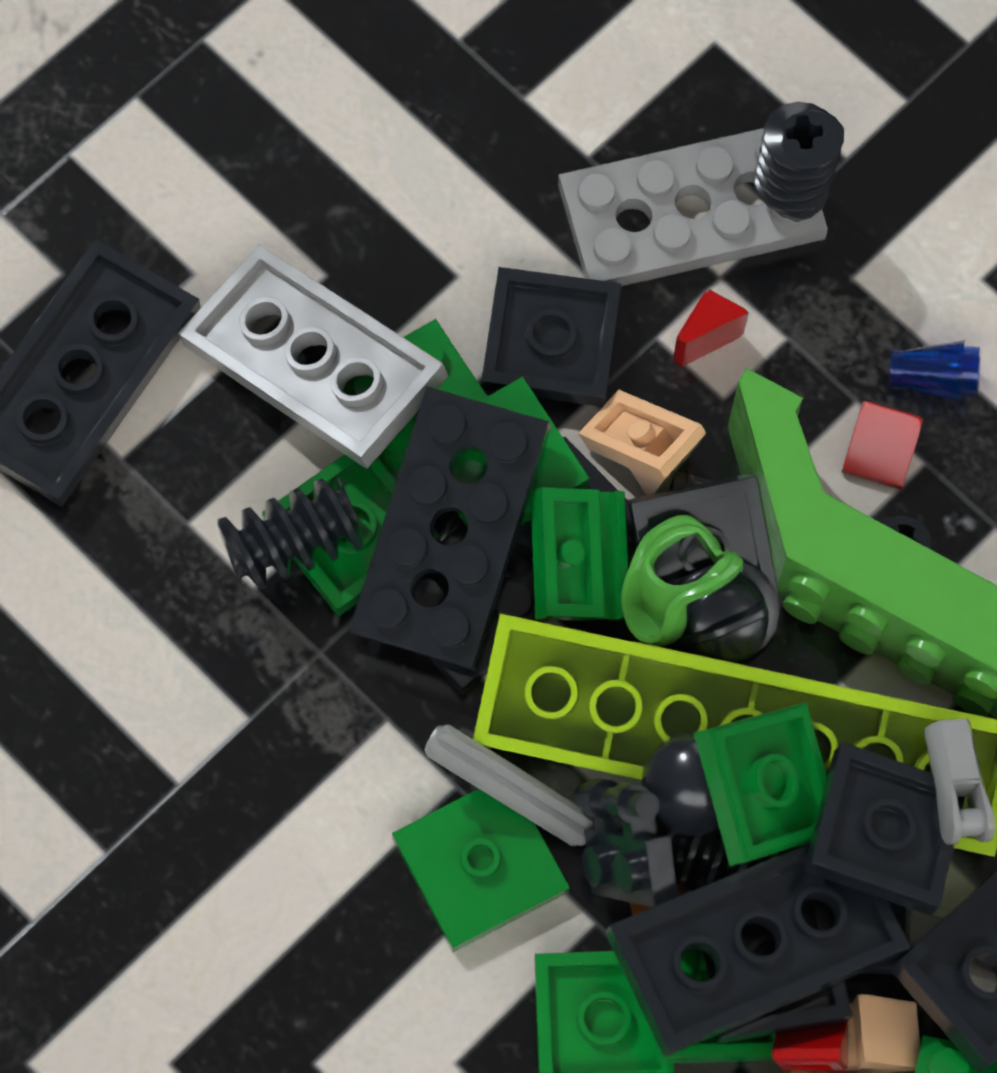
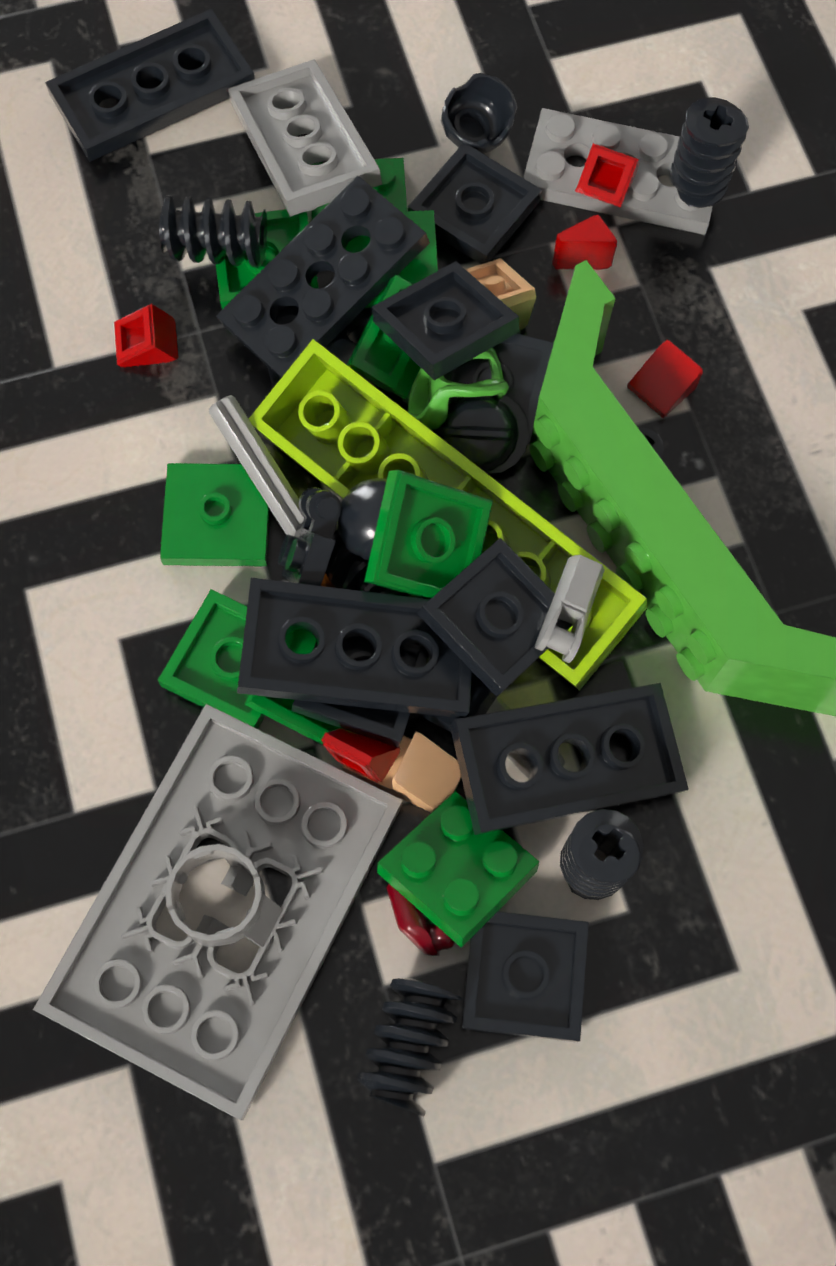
camera: 30 degrees right, 0 degrees up
(266, 695) = (146, 338): none -> red slope
(496, 222) = (479, 113): none -> black hair
(631, 516) = (445, 320): none -> black plate
(689, 232) = (607, 175): none -> red slope
(938, 369) = (735, 348): clear blue cone -> none

